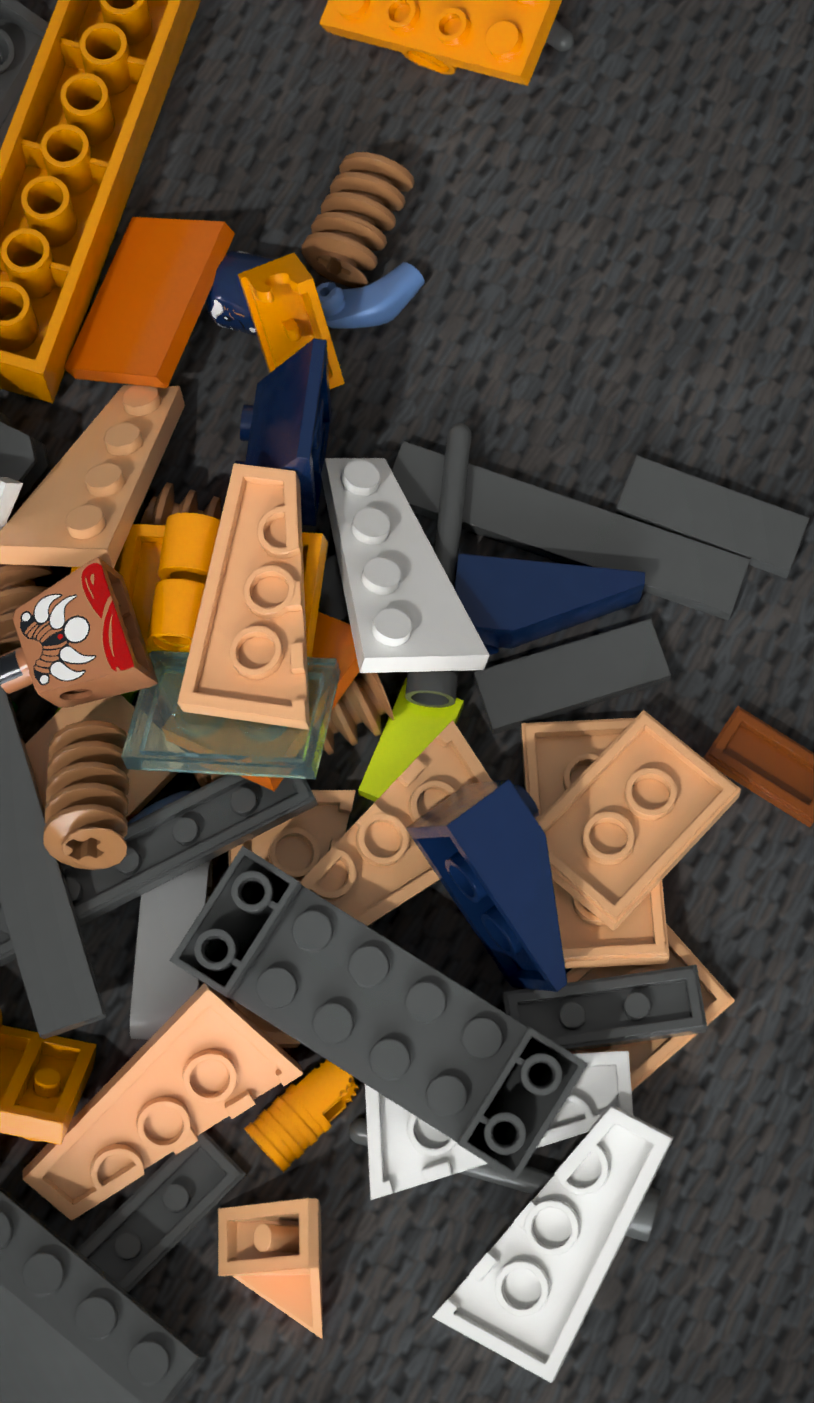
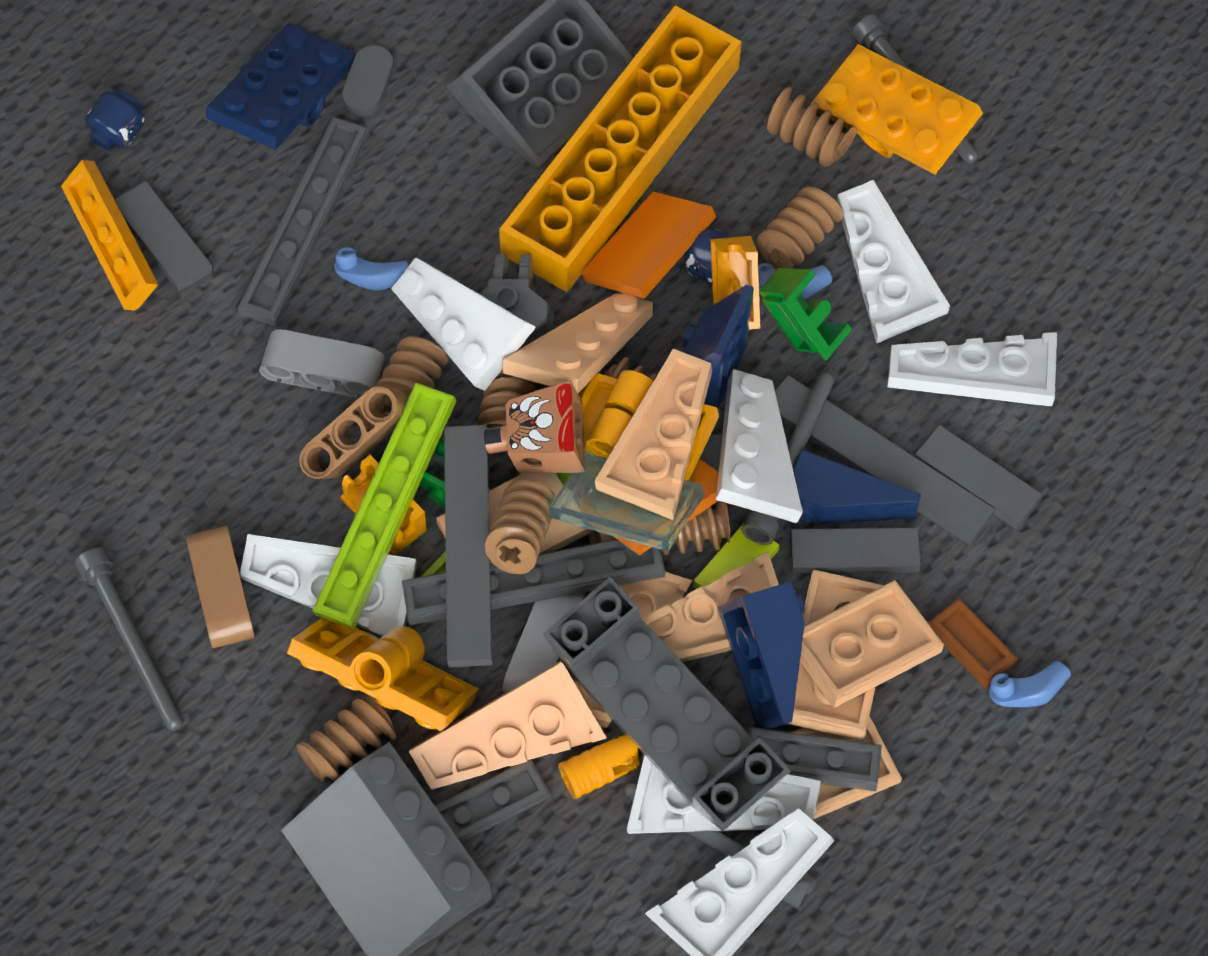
camera: 15 degrees right, 10 degrees down
(276, 1255) = (557, 846): light nougat slope -> none
(327, 63) = (808, 130): none -> medium nougat piece
(402, 361) = (797, 319): none -> green window
(501, 243) = (888, 267): none -> white wing
(697, 350) = (992, 370): none -> white wing

